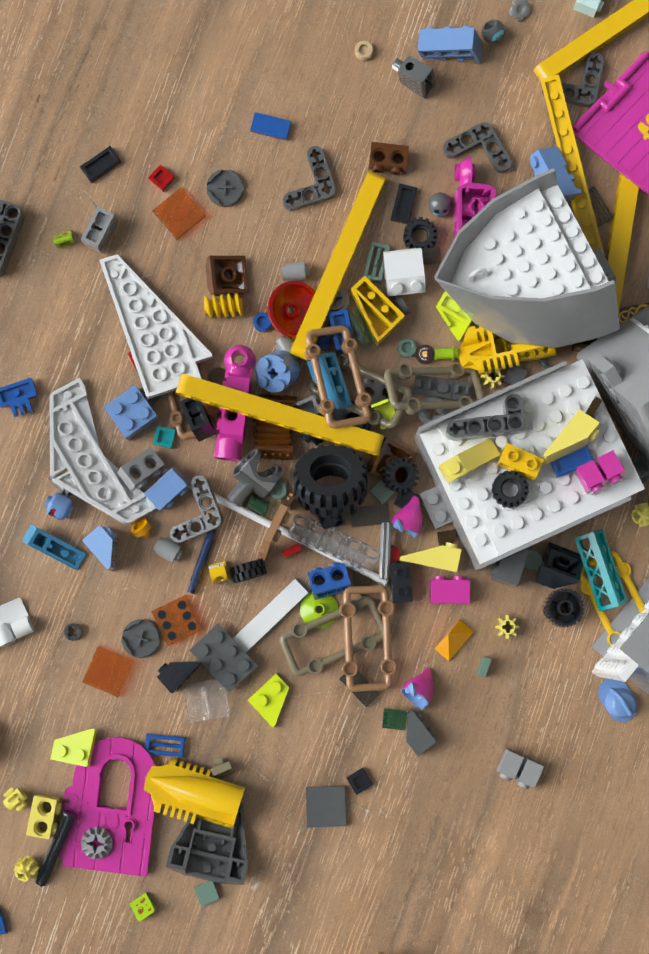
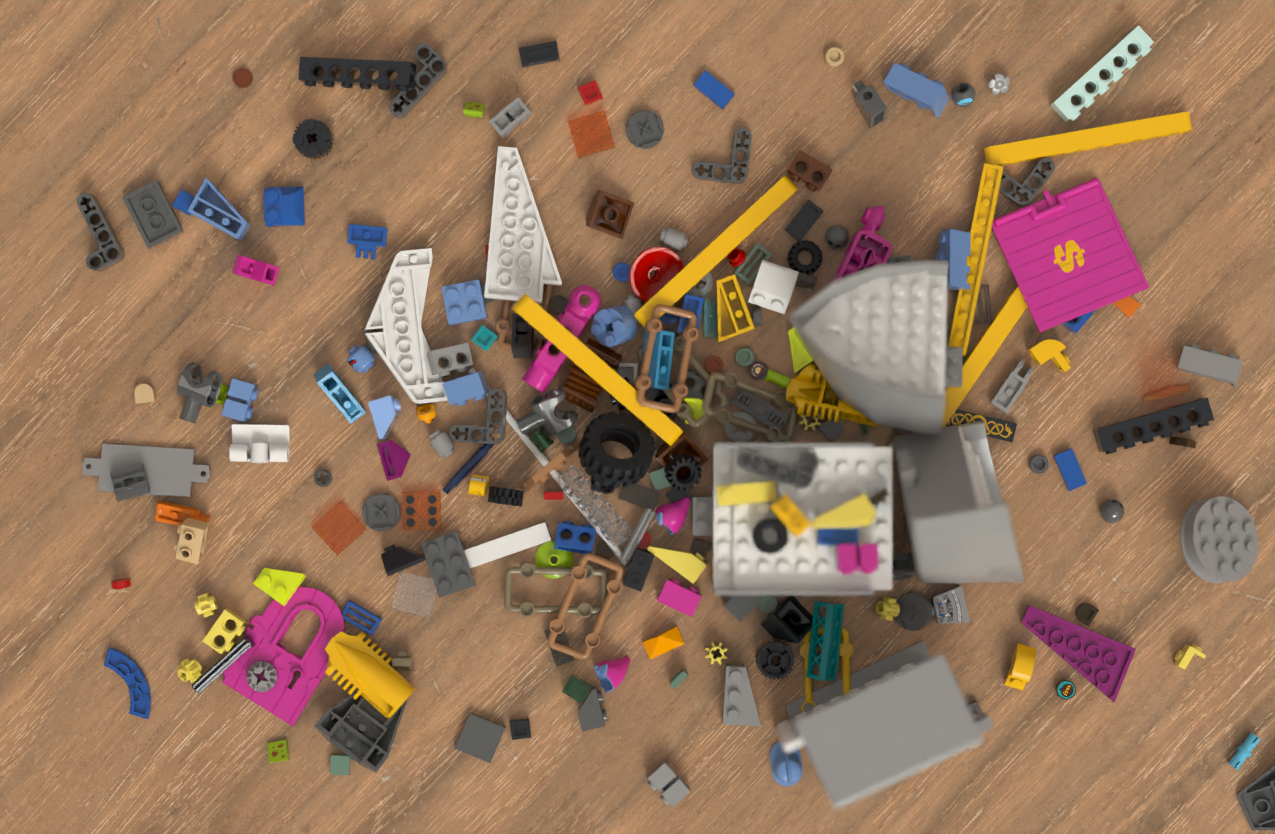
camera: 25 degrees right, 5 degrees up
(129, 584) = (393, 459): none -> magenta slope
(223, 306) = (593, 241): yellow piece -> none
(270, 699) = (473, 619): neon yellow wing -> none
(359, 262) = (736, 257): none -> red plate
(382, 365) = (713, 364): none -> copper tile
(484, 141) = (906, 195): dark grey beam -> none
(547, 659) = (738, 698): none -> light grey wedge

